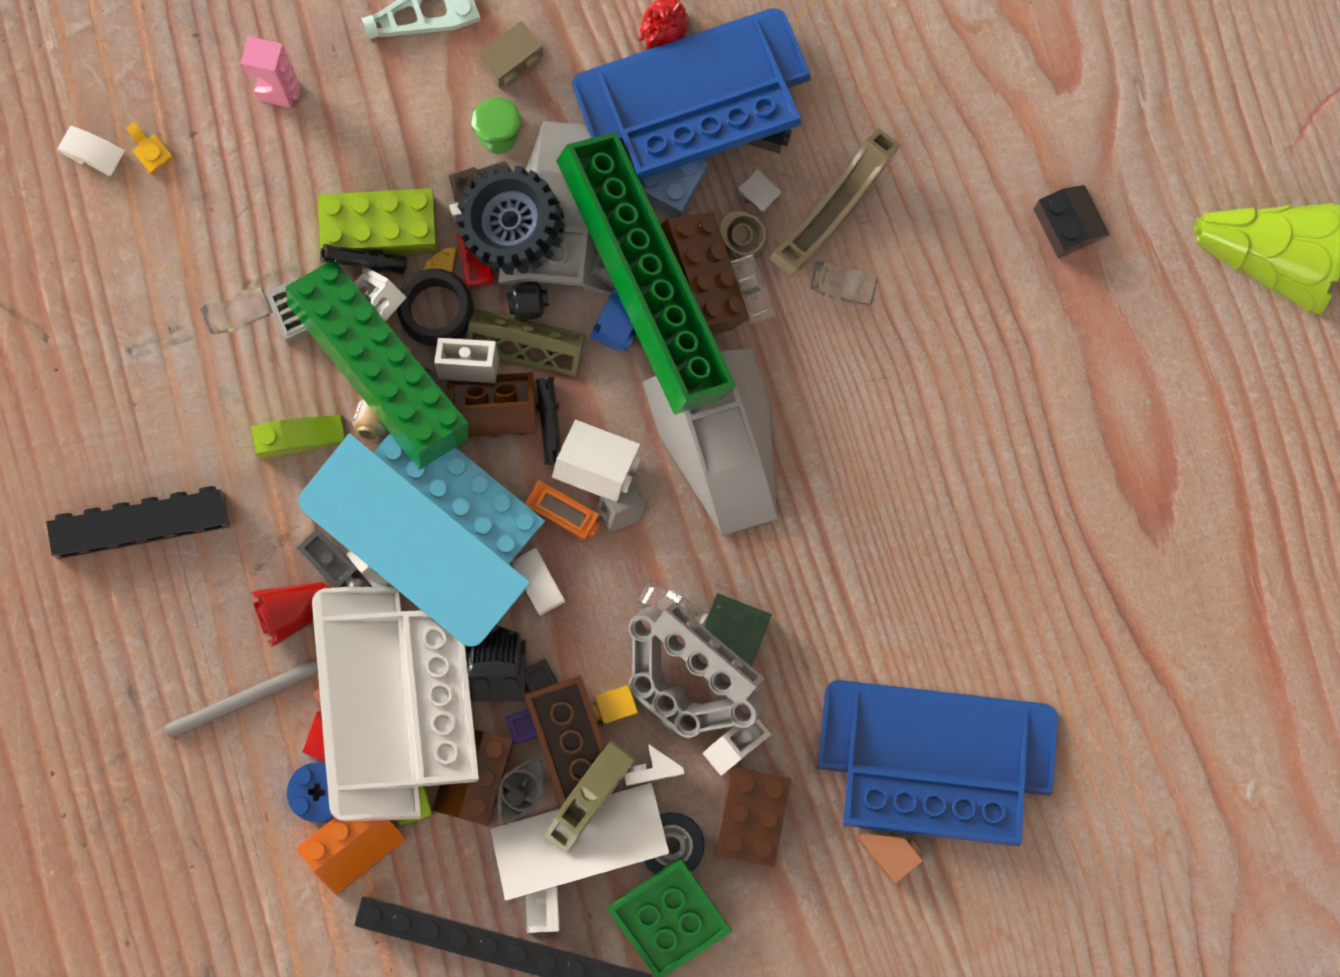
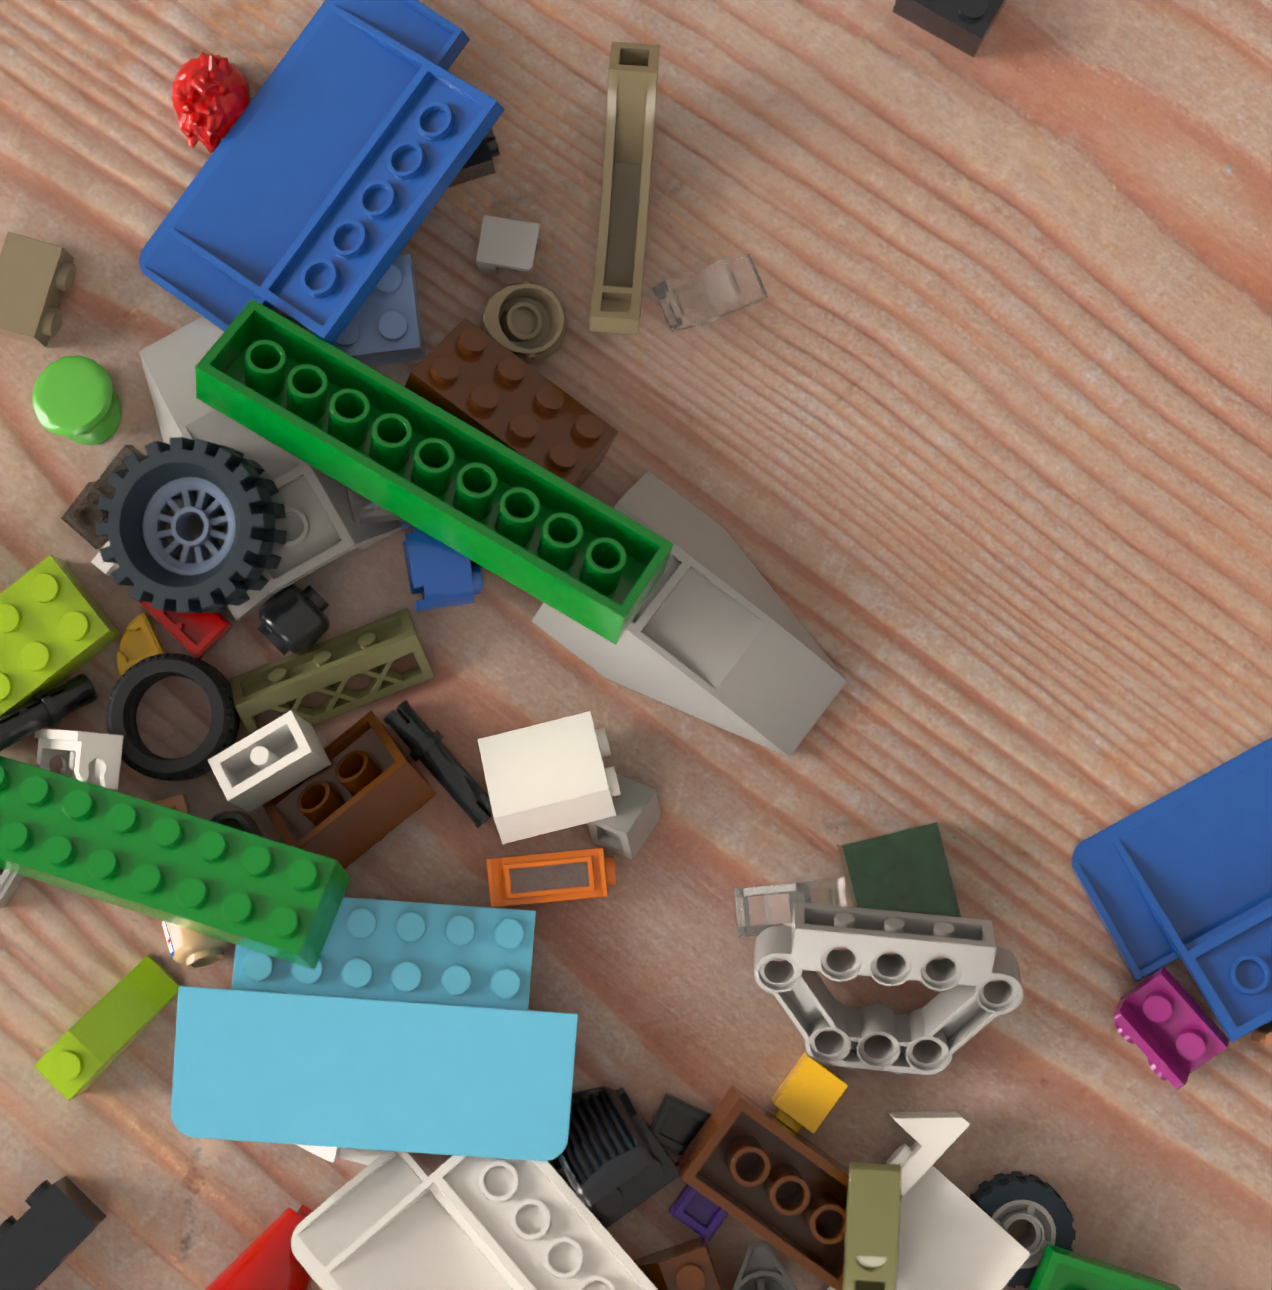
camera: 30 degrees left, 5 degrees up
(330, 561) = (281, 1171): dark grey plate -> none
(542, 588) = (596, 1000): white slope -> none
(735, 746) = (1011, 1040): white slope -> none
(753, 289) = (593, 386): clear slope -> none
(753, 816) = (1101, 1114): reddish brown brick -> none
(816, 799) = (1168, 1027): none -> magenta bracket

